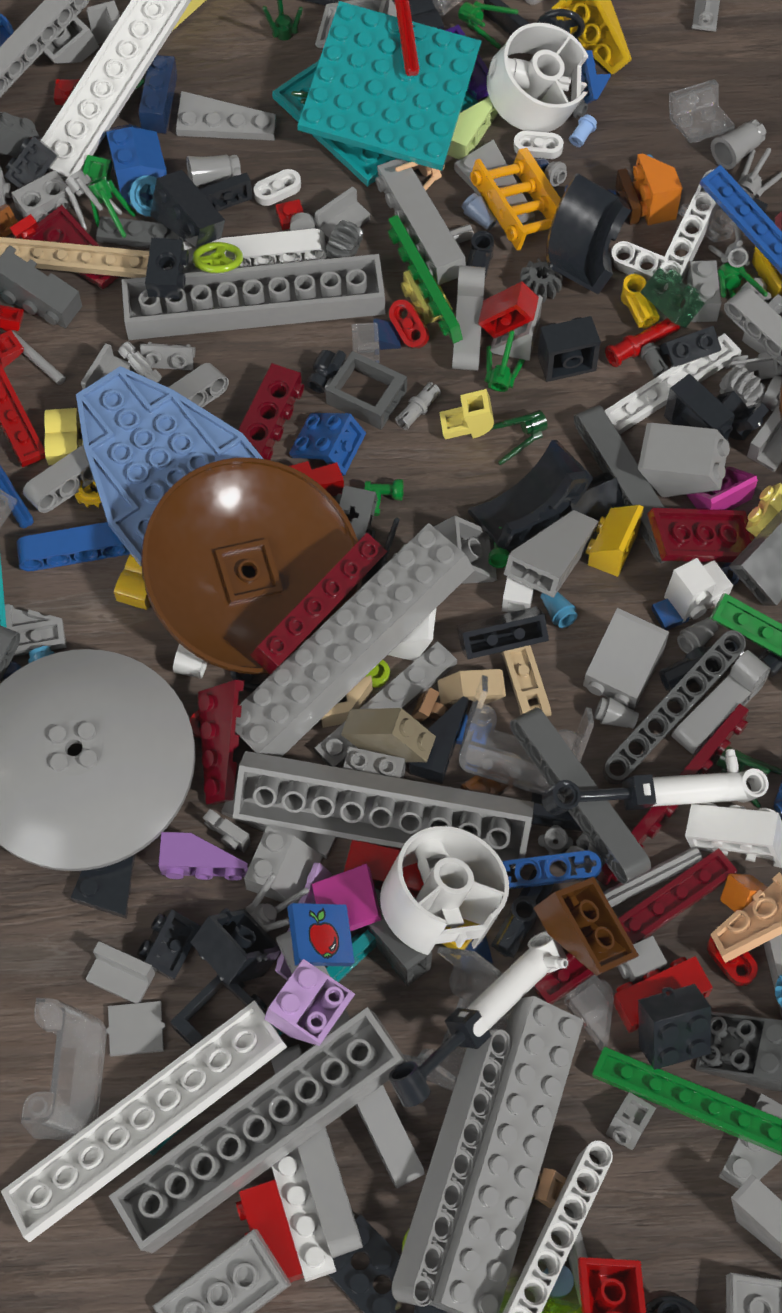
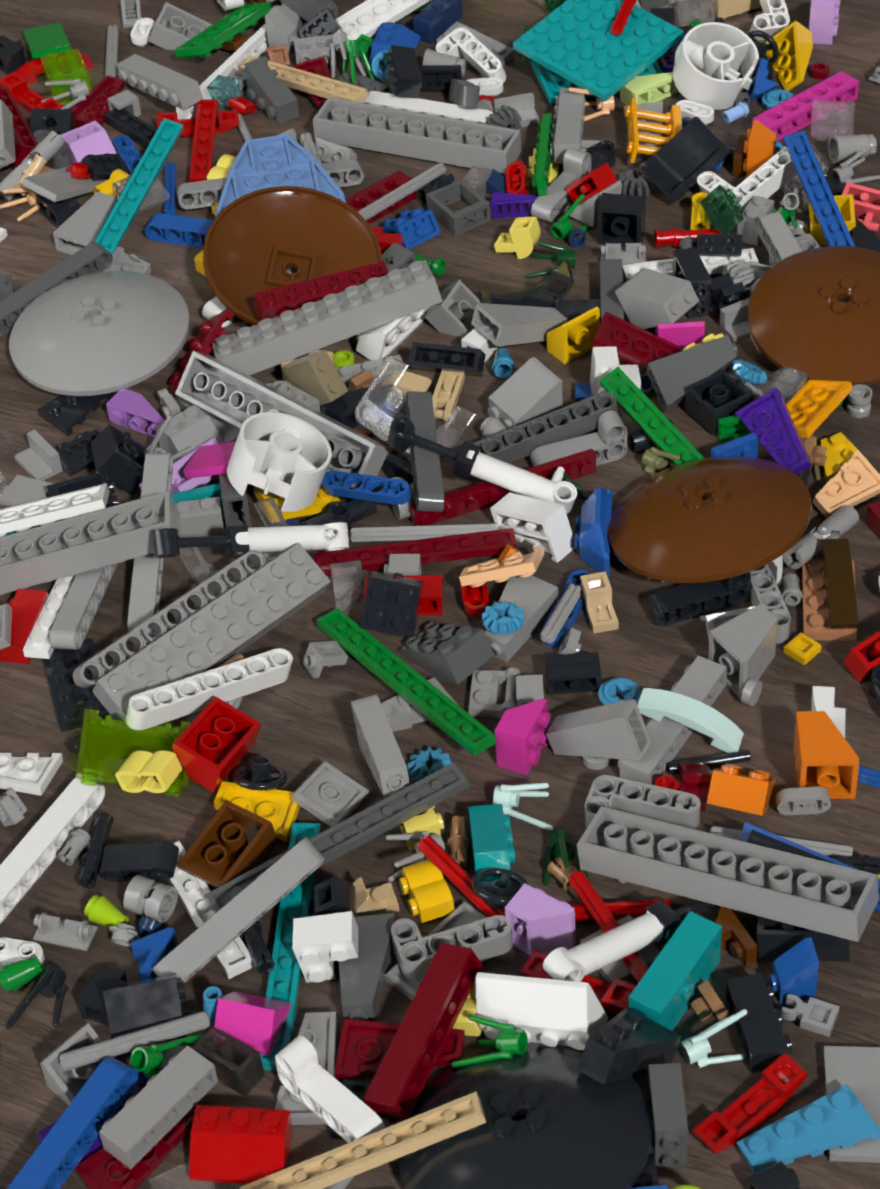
camera: 30 degrees right, 20 degrees down
(25, 228) = (288, 57): red plate -> none
(166, 254) = (359, 93): black brick -> none
(217, 261) = (404, 103): lime piece -> none
(245, 148) = (466, 45): none -> white beam
(272, 213) = (464, 93): none -> dark grey beam
(295, 400) = (402, 191): none -> light grey axle
(308, 1004) = (132, 479): lavender slope -> none
(321, 934) = (176, 458): blue tile -> none
(373, 985) = (201, 517): none -> light grey brick
(417, 405) = (489, 227): light grey pin -> none
(425, 363) = (509, 198): none -> dark purple slope
(478, 210) = (619, 134): sand blue cone -> none
(524, 385) = (577, 240): none -> dark blue hinge
(586, 926) = (370, 520): reddish brown slope -> none
(591, 394) = (633, 254): none -> light grey hinge
(623, 89) = (772, 98): none -> dark azure gear
(632, 32) = (819, 70): none -> dark red tile
(652, 103) = (797, 111): none -> dark pink brick

